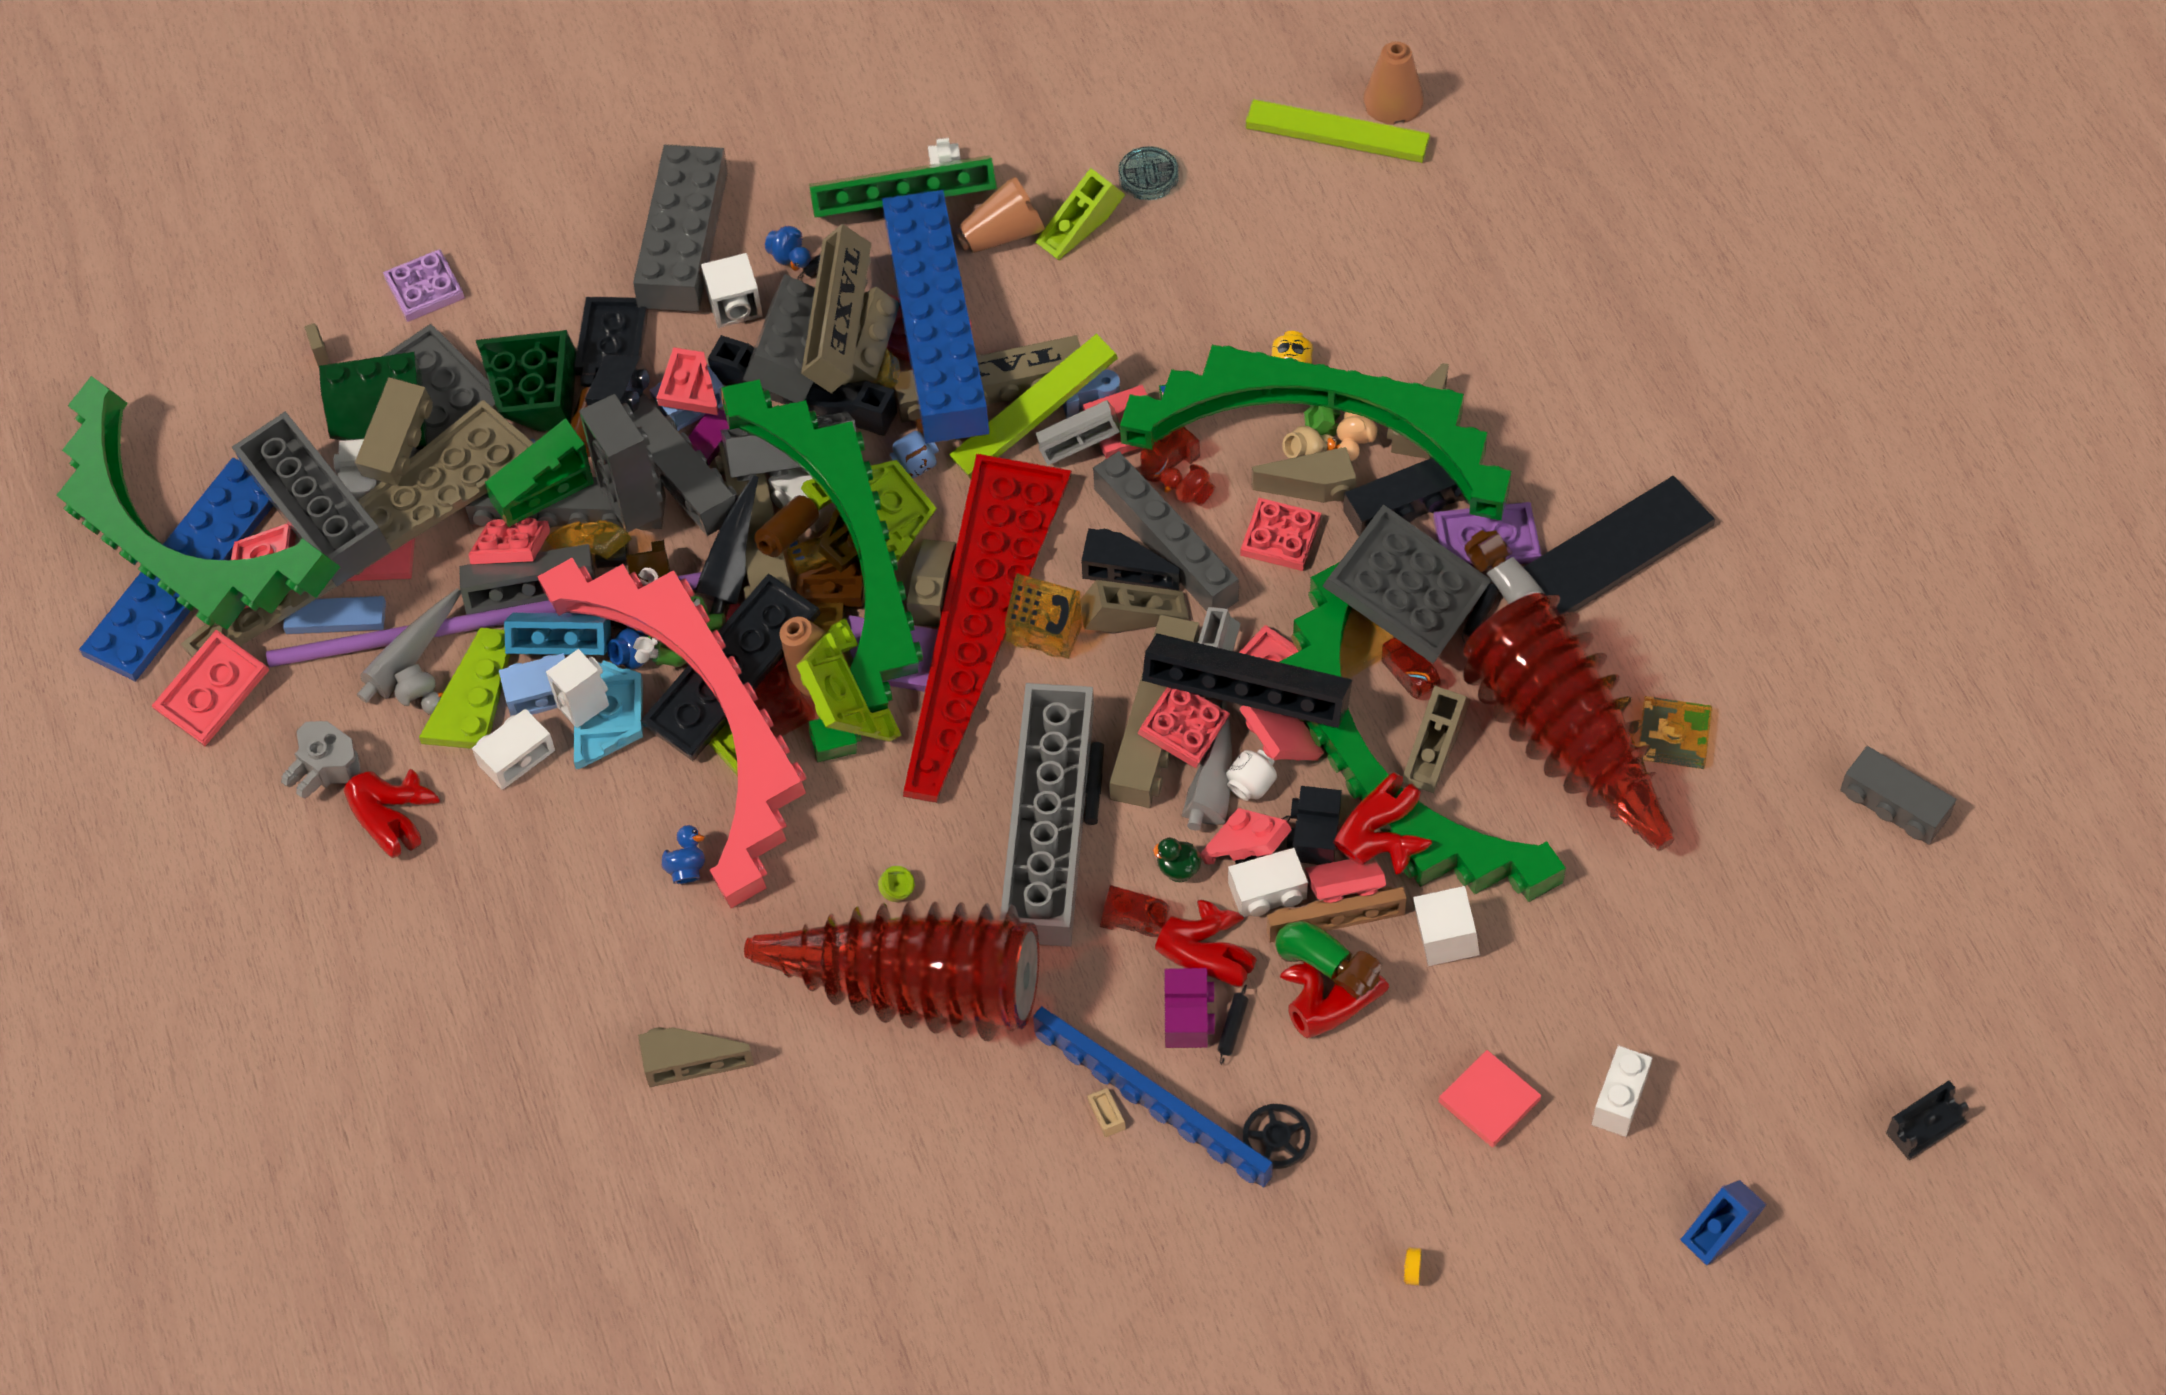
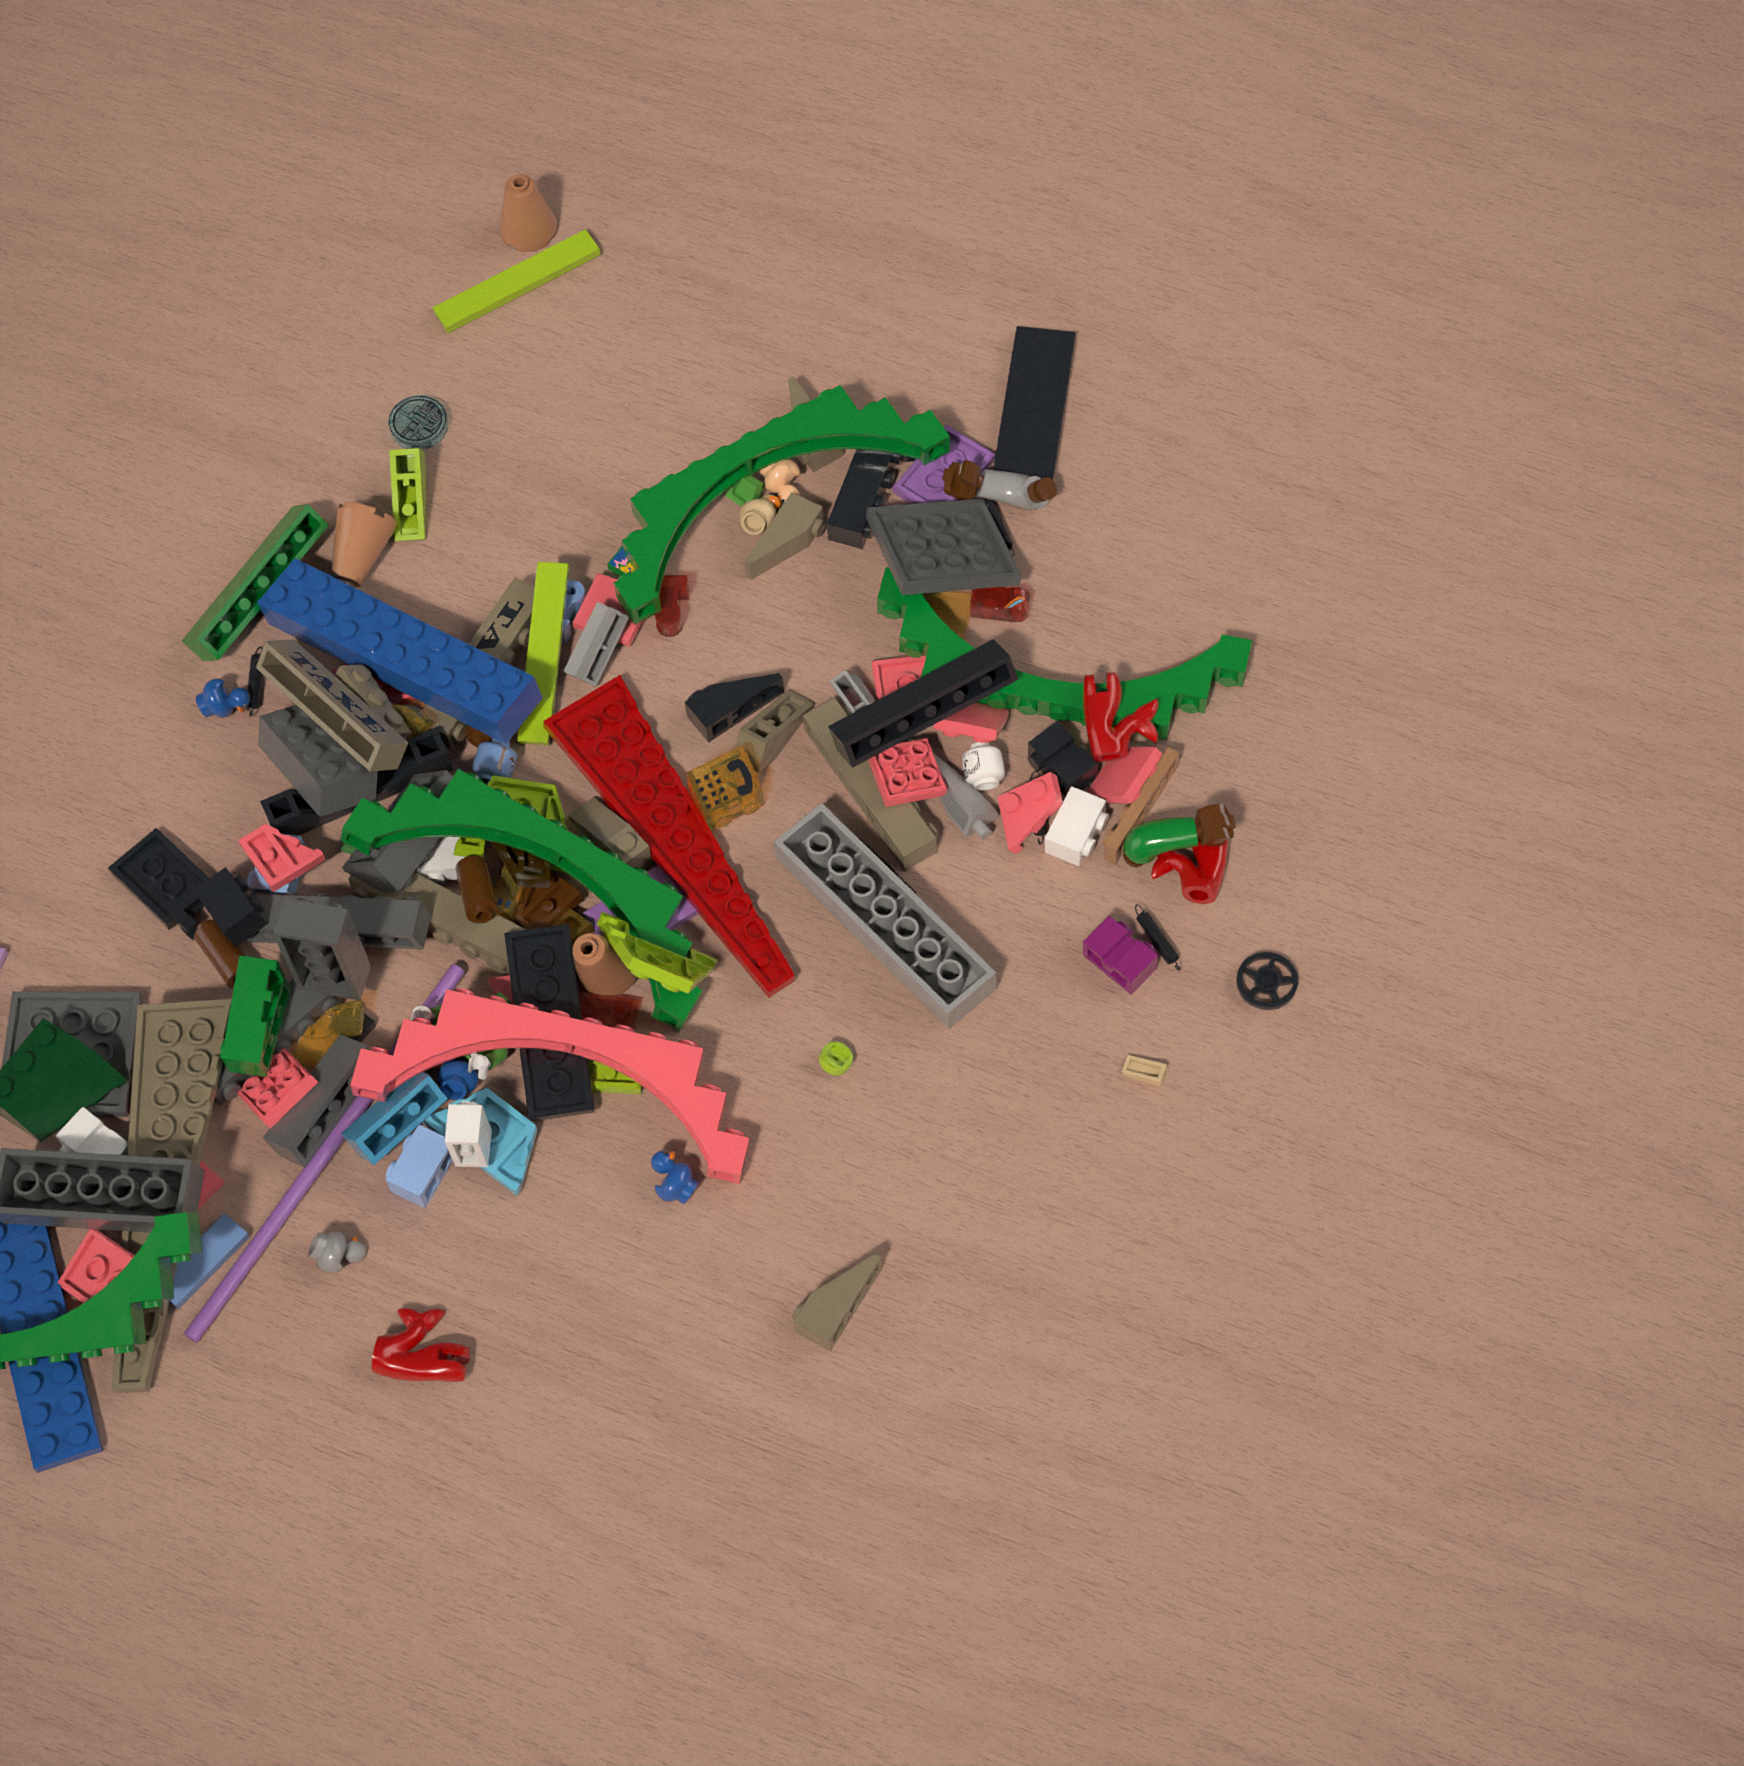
camera: 45 degrees left, 5 degrees up
(210, 688) = (176, 1397): coral tile -> none
(324, 756) = (328, 1361): light grey hinge -> none
(394, 431) = (106, 1085): dark tan brick -> none
(404, 650) = (291, 1236): light grey piece -> none
(472, 695) = (380, 1223): lime wing -> none
(513, 748) = (457, 1224): white brick -> none
(531, 377) = (144, 959): dark green wedge -> none
(654, 559) = (403, 1004): dark brown panel -> none
(680, 227) = (123, 754): dark grey brick -> none
(708, 435) = (326, 877): magenta tile -> none
(726, 561) = (460, 952): black piece -> none
(732, 290) = (219, 765): white head -> none
(917, 966) = (928, 1092): clear red cone -> none
(943, 152) = (252, 535): white tile -> none
(1134, 912) = (1013, 927): clear red leg -> none
(1161, 1104) = (1154, 1033): blue plate -> none
(1165, 532) = (734, 658): dark grey brick -> none
(1177, 859) = (1004, 865): dark green animal -> none
(1193, 488) = (715, 613): clear red animal -> none
(1223, 960) = (1066, 919): red piece -> none
(1280, 534) = (808, 592): coral tile -> none
(1293, 346) = (672, 458): yellow head -> none
(1412, 1266) = (1444, 977): yellow tile -> none
(1435, 738) = (1070, 633): dark tan slope -> none
(1446, 926) = (1221, 746): white head -> none
(1489, 1098) = (1367, 830): coral tile -> none
(1565, 710) = (1146, 537): clear red cone -> none
(1621, 1091) = (1440, 748): white brick -> none
(1675, 731) = (1206, 495): clear yellow tile -> none
(1723, 1221) = (1586, 771): blue slope -> none
(1897, 795) = (1386, 411): dark grey brick -> none
(1927, 1121) = (1627, 598): black hinge -> none

